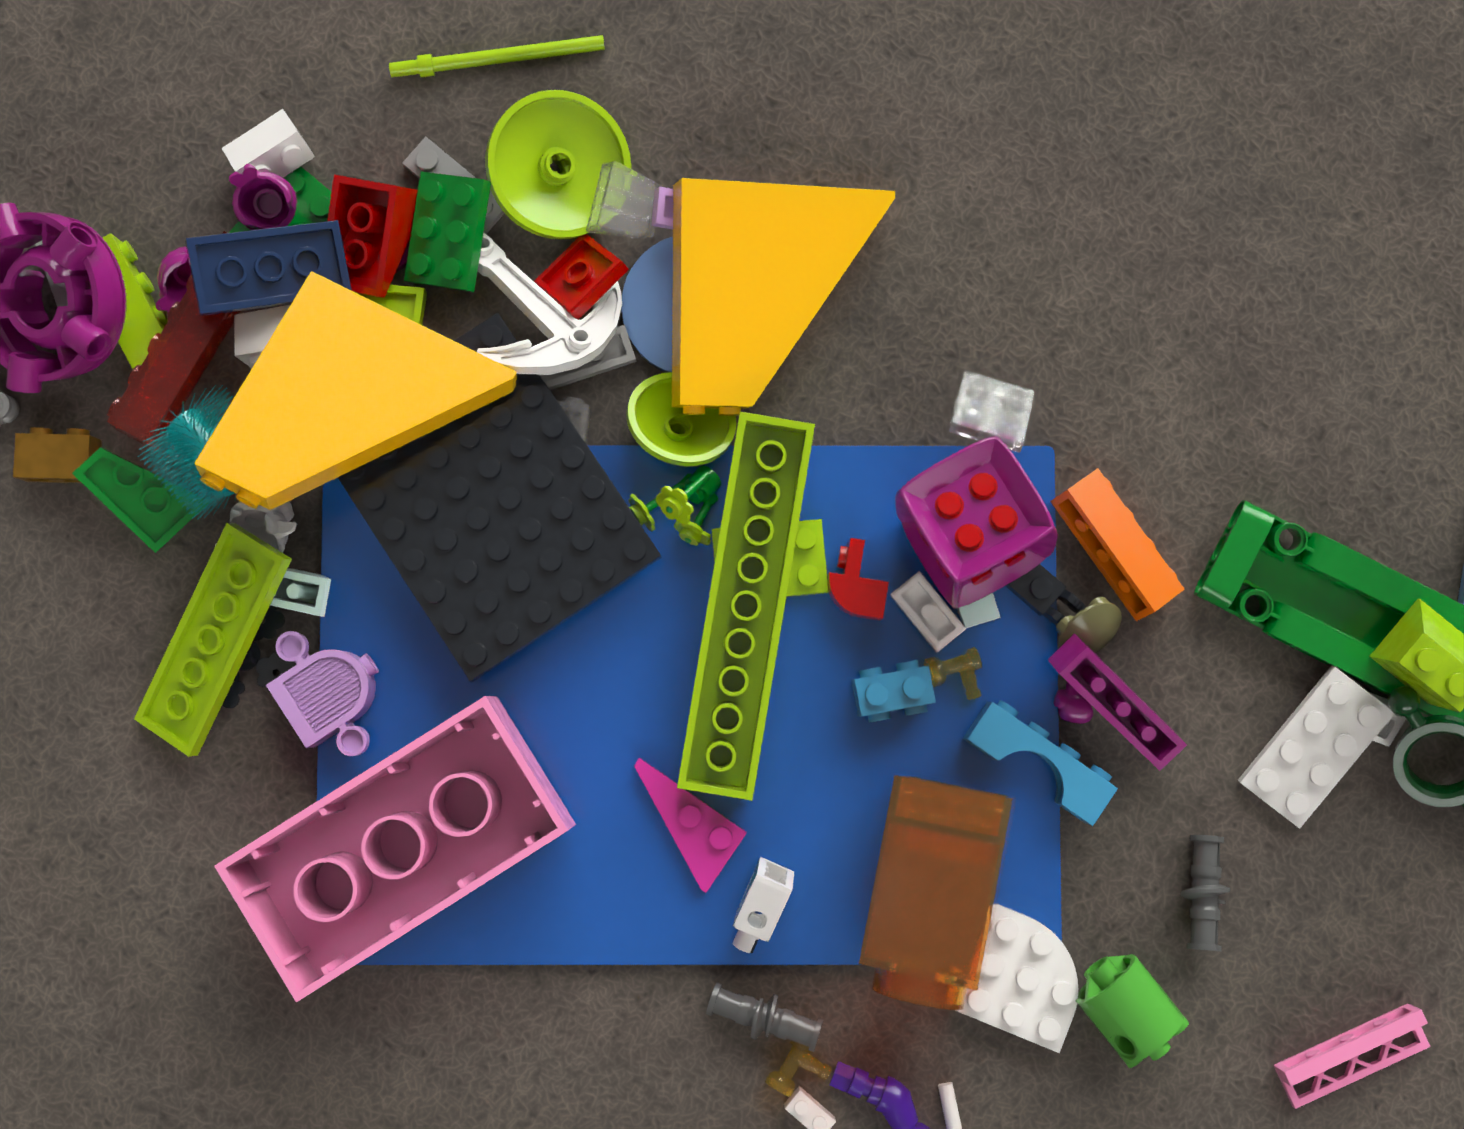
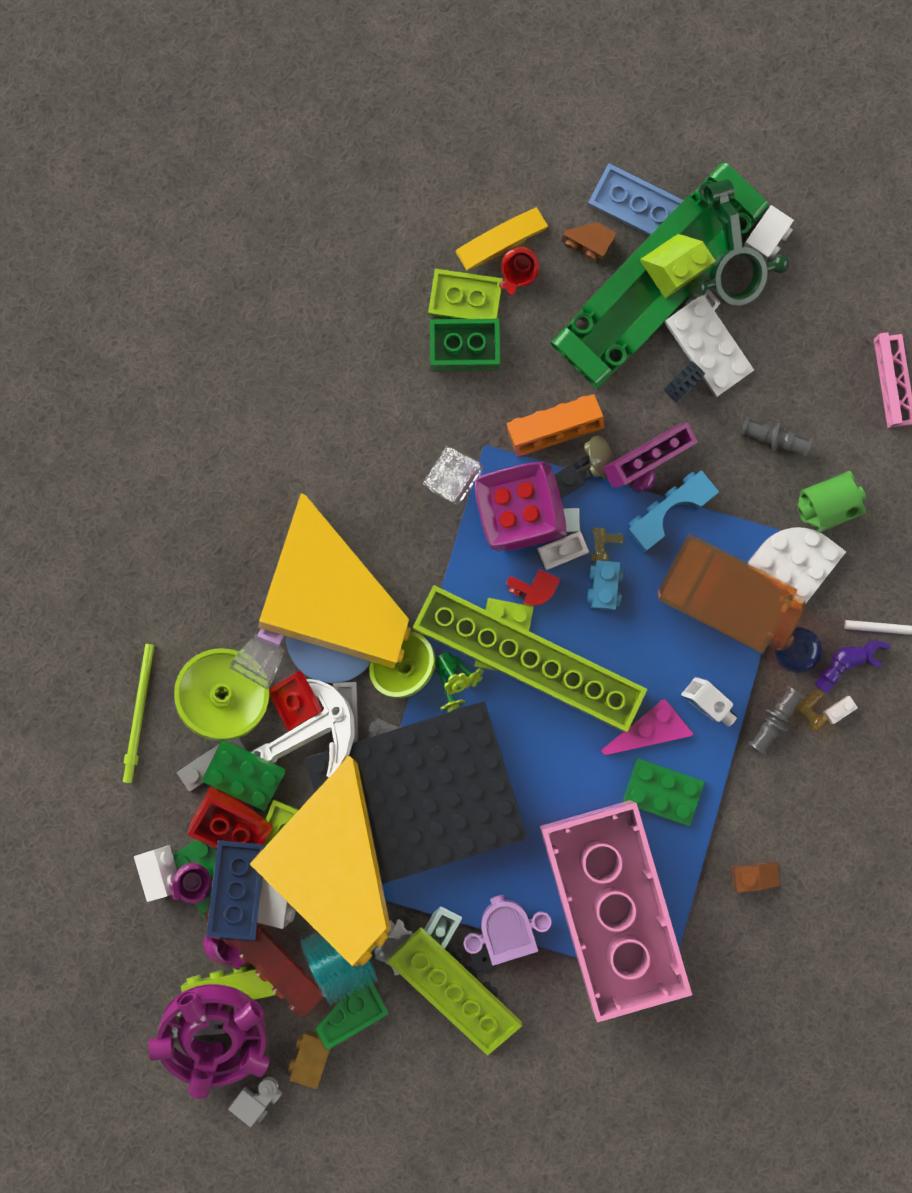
camera: 65 degrees left, 0 degrees up
(514, 1051) = (755, 876): none -> dark orange slope
(603, 872) = (663, 791): none -> green plate
(882, 1024) = (800, 651): none -> clear blue cylinder
(1198, 370) = (464, 345): none -> green brick
(1247, 723) = (684, 381): none -> black wheel
(1272, 351) = (464, 295): none -> lime plate
(1342, 419) = (519, 269): none -> red hat
(1381, 379) = (501, 238): none -> yellow slope
(1423, 516) = (590, 239): none -> dark orange slope

